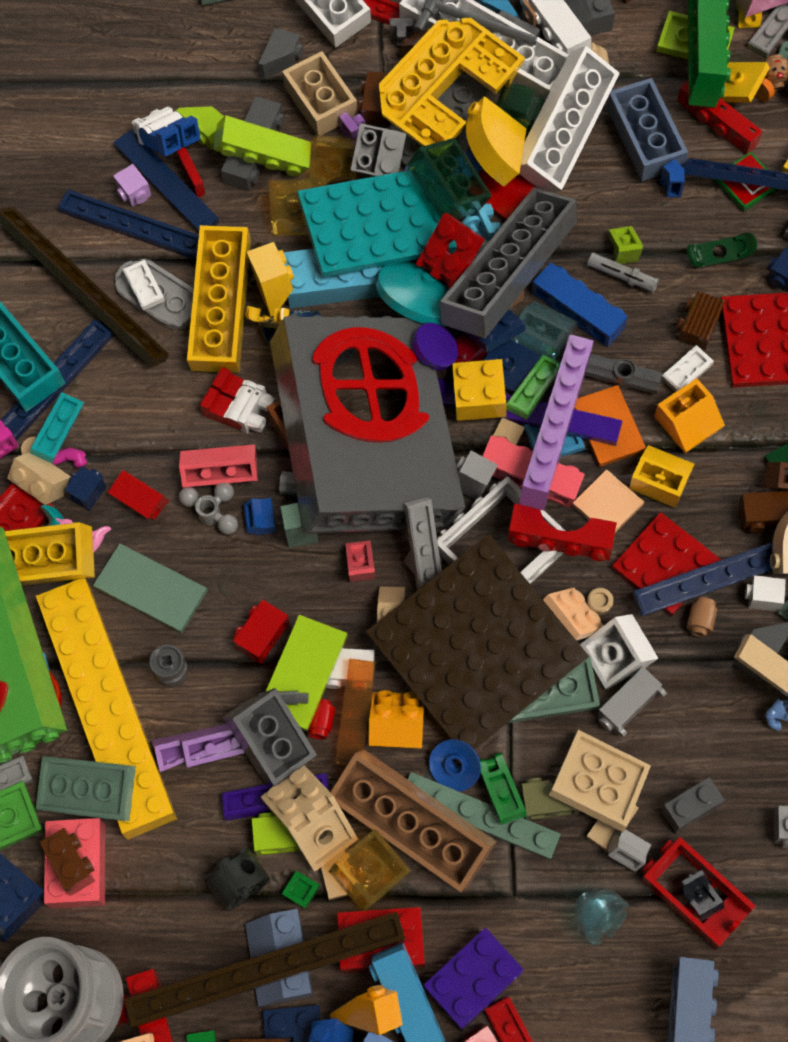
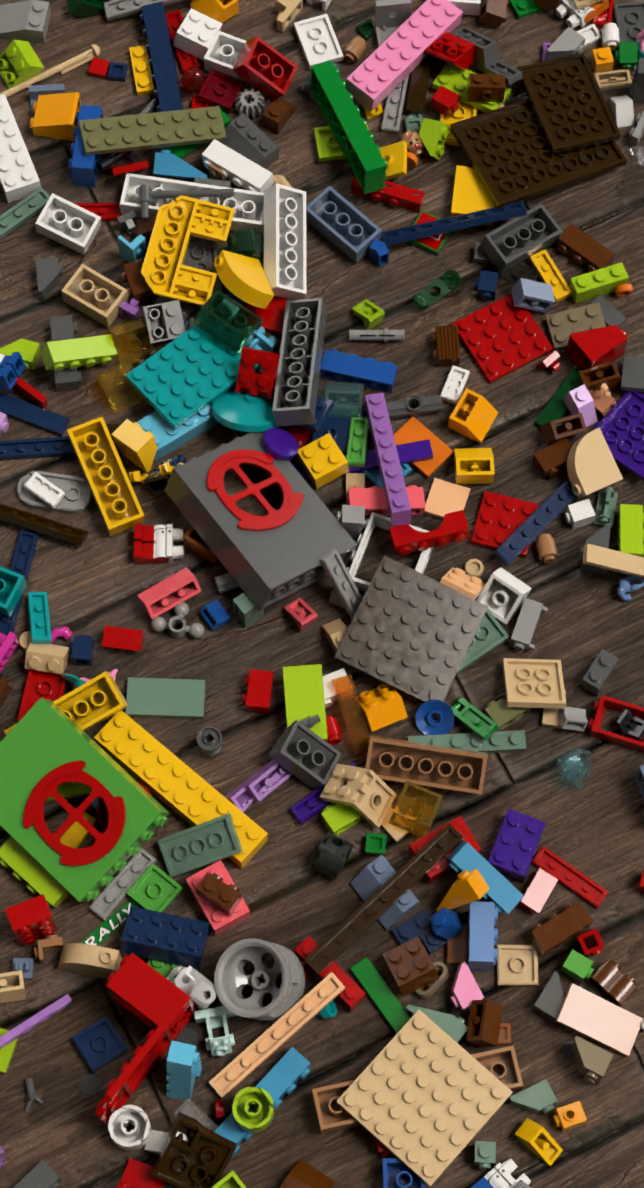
camera: 30 degrees left, 0 degrees up
(388, 57) = (132, 251): none -> medium azure panel

